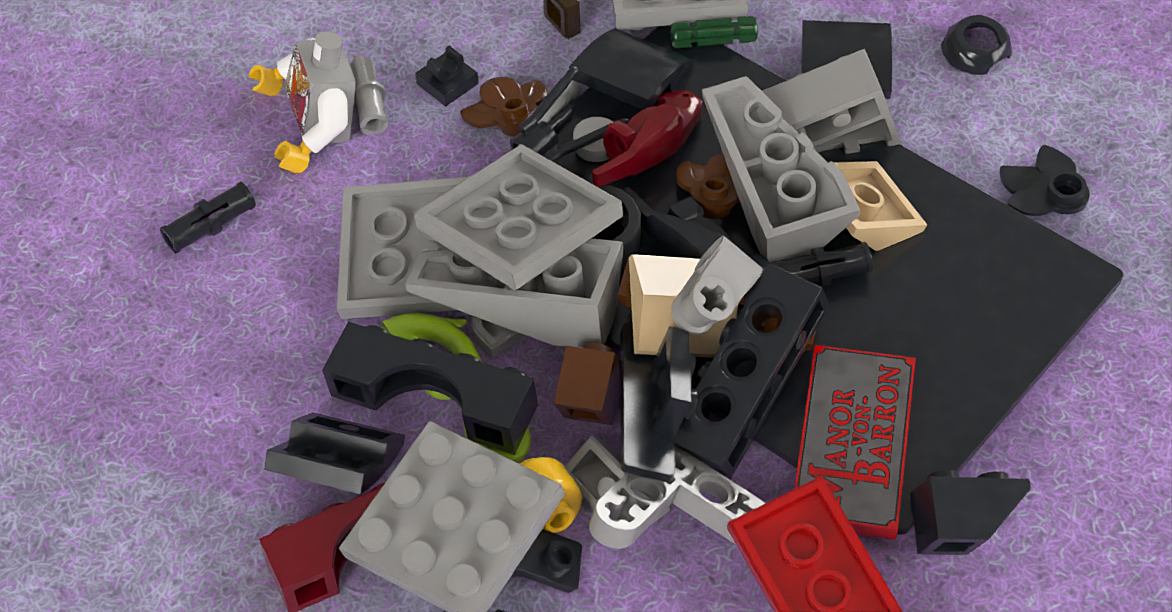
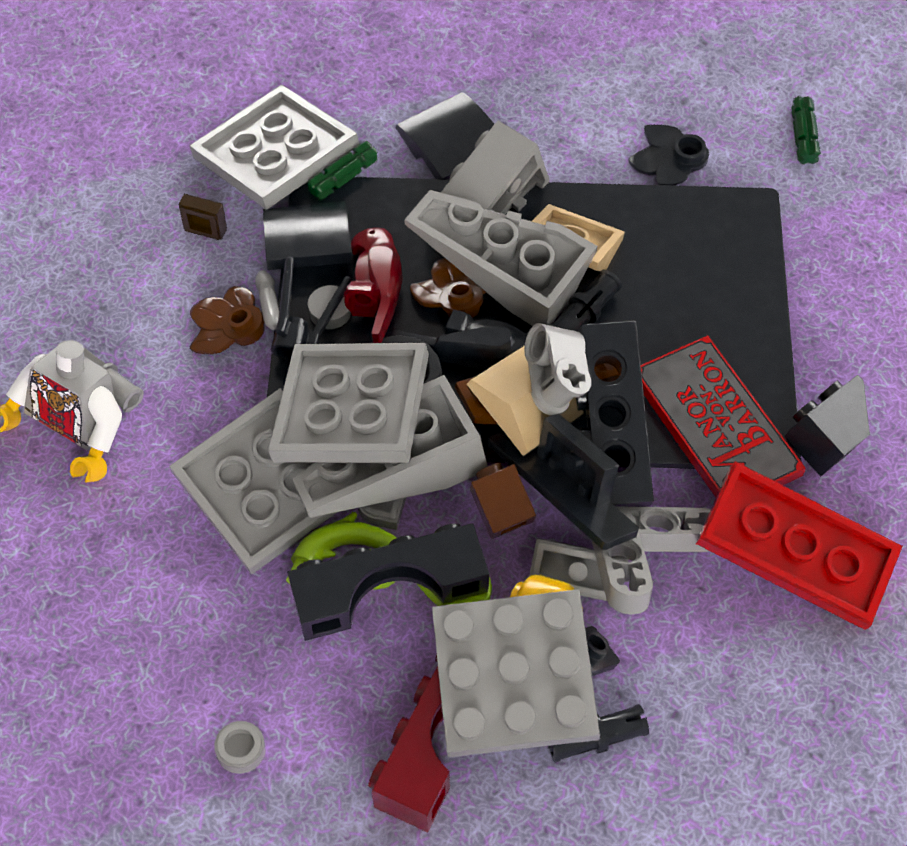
camera: 40 degrees left, 5 degrees up
(181, 233) = (63, 562): black pin -> none
(207, 445) = (240, 747): none -> light grey tile
(335, 452) = (357, 682): black slope -> none
(447, 77) = (155, 325): black tile -> none
(972, 59) = (530, 88): black piece -> none

